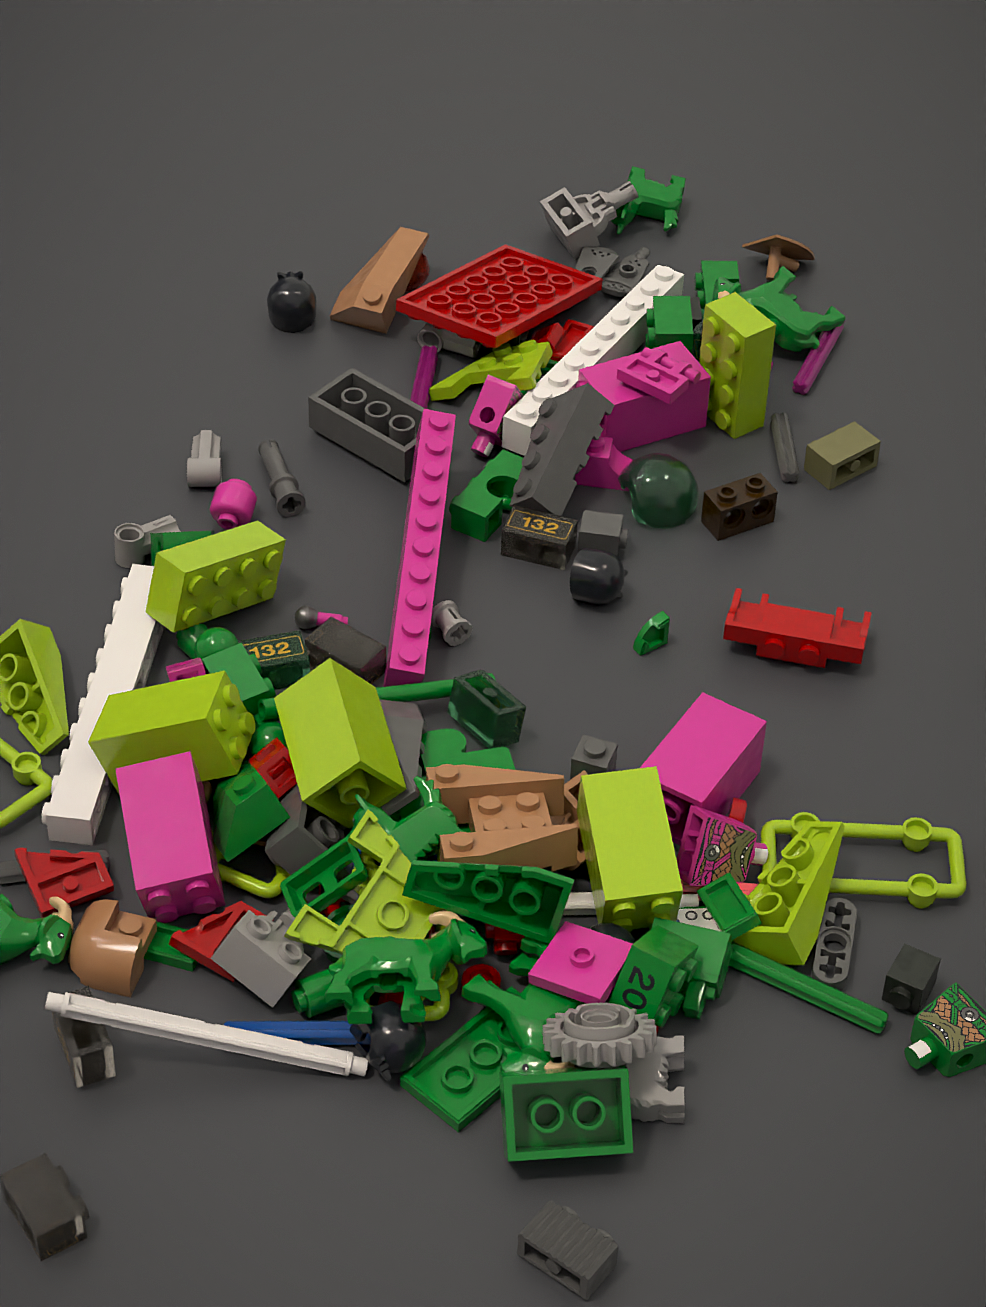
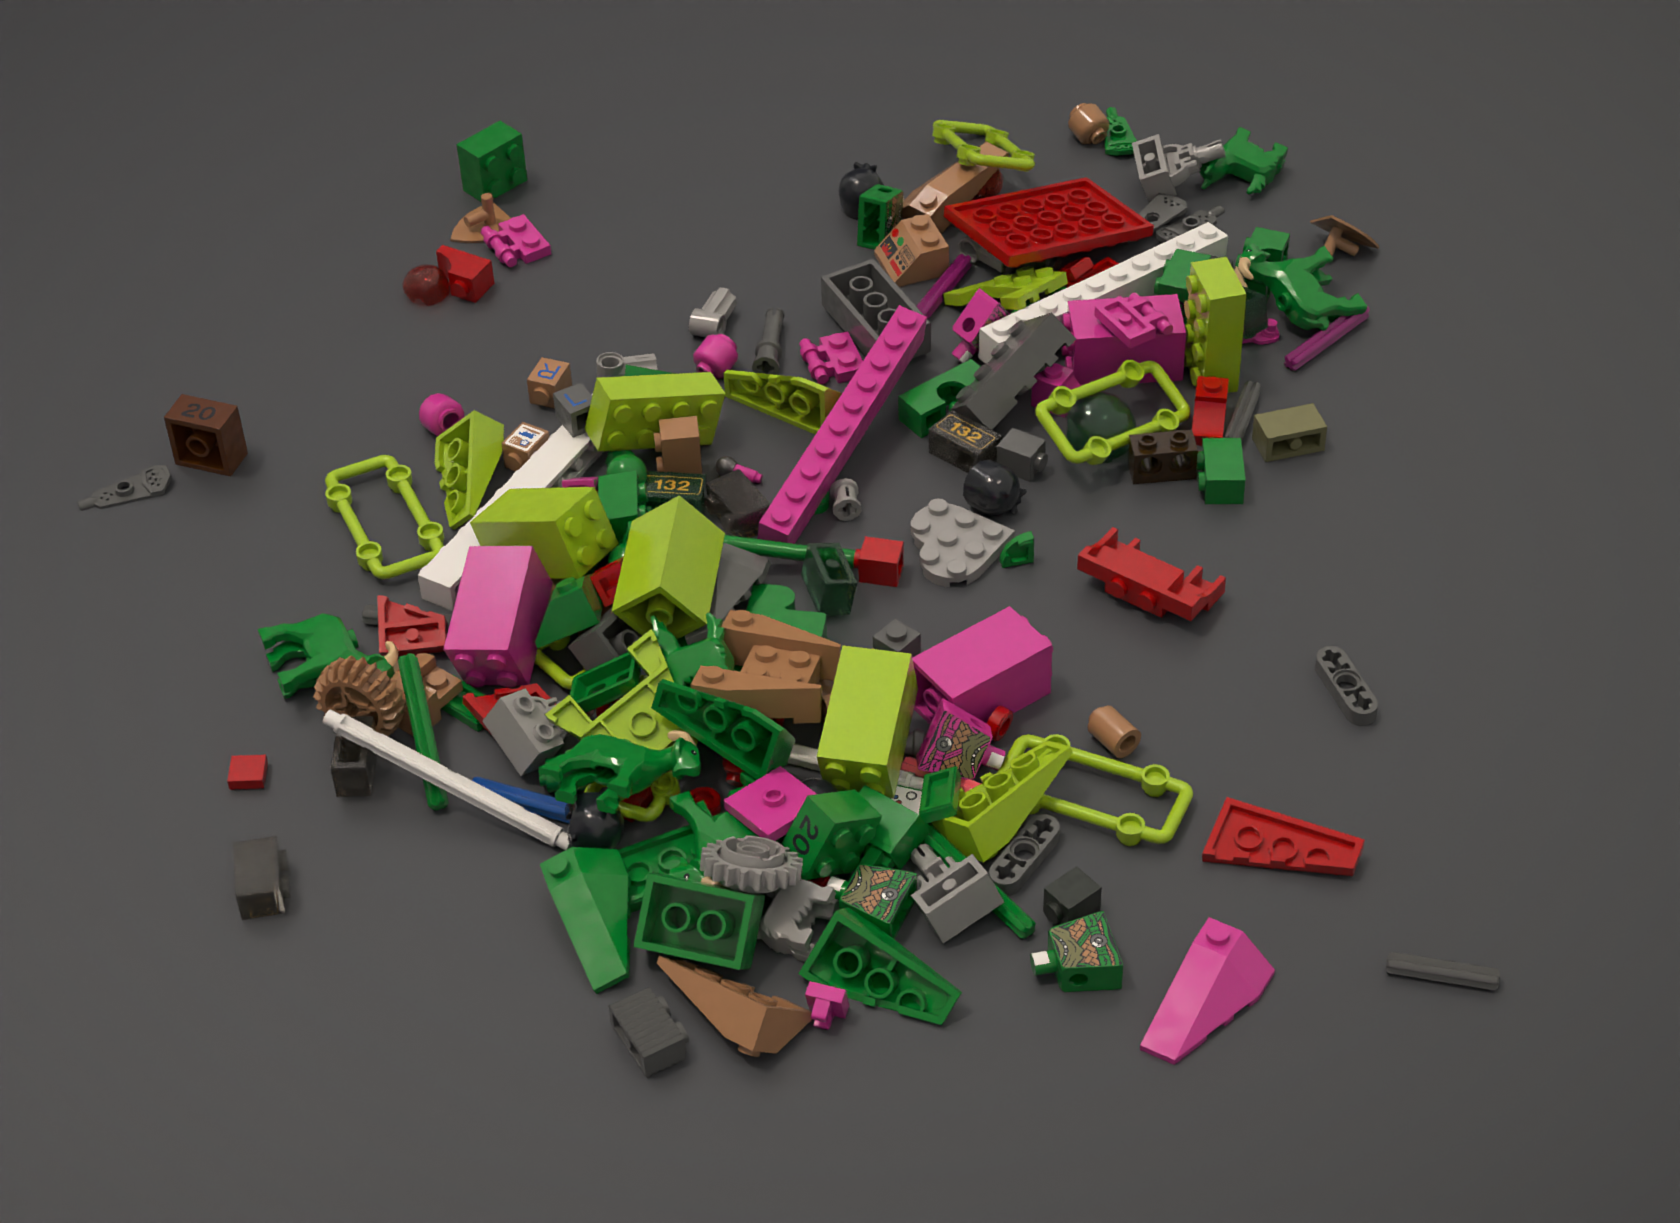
camera: 25 degrees right, 0 degrees up
(59, 963) = (360, 690): none -> medium nougat gear
(69, 571) = (547, 379): none -> medium nougat brick
(81, 646) = (522, 444): none -> medium nougat brick
(127, 592) = (572, 408): none -> dark grey brick
(142, 980) = (421, 724): none -> green axle
(258, 607) = (679, 445): none -> medium nougat brick
(325, 317) = (881, 208): none -> green torso
(341, 532) = (782, 397): none -> lime wedge
(358, 476) = (839, 353): none -> dark pink plate
(378, 350) = (913, 251): none -> medium nougat slope
(394, 242) = (970, 155): none -> lime bar
(436, 1127) = (593, 903): none -> green wedge
(477, 191) = (1088, 123): none -> medium nougat head
(506, 198) = (1118, 142): none -> green piece
(524, 677) = (880, 561): none -> red brick
(583, 640) = (956, 542): none -> light grey plate
(667, 1203) = (736, 1010): none -> medium nougat wedge
(670, 432) = (1128, 376): none -> lime bar
(721, 1037) = (878, 895): none -> torso
(734, 1161) = (826, 1003): none -> dark pink tile
(755, 447) = (1210, 408): none -> red arch
(755, 1110) = (878, 970): none -> green wedge
(795, 1005) = (954, 894): none -> light grey brick
(803, 508) = (1222, 471): none -> green brick
(850, 794) = (1113, 731): none -> medium nougat brick

